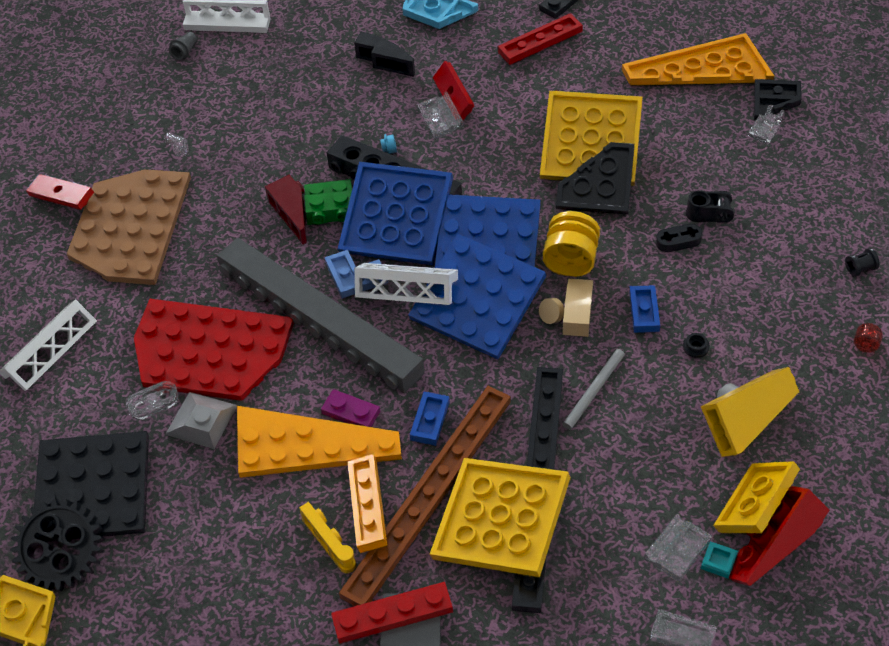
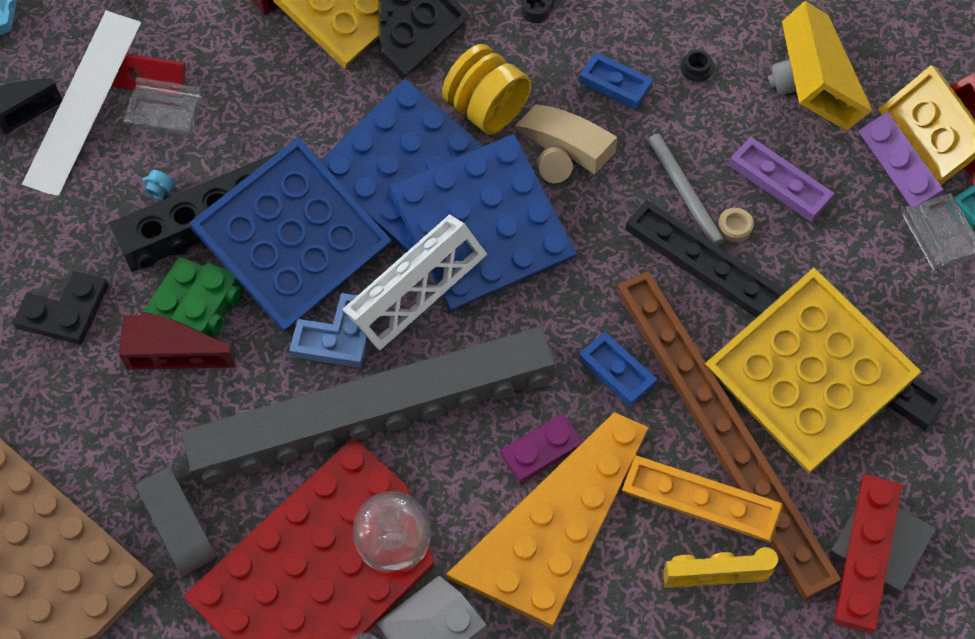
camera: 60 degrees left, 10 degrees up
(188, 270) = (175, 521): none -> dark grey beam
(240, 360) = (391, 531): none -> clear cylinder
(281, 158) = (63, 318): none -> black plate
(413, 80) = (81, 103): none -> white sticker
(588, 429) = (735, 225): none -> tan tile
(643, 435) = (781, 179): none -> medium lavender plate
(717, 495) = (900, 160): none -> medium lavender plate

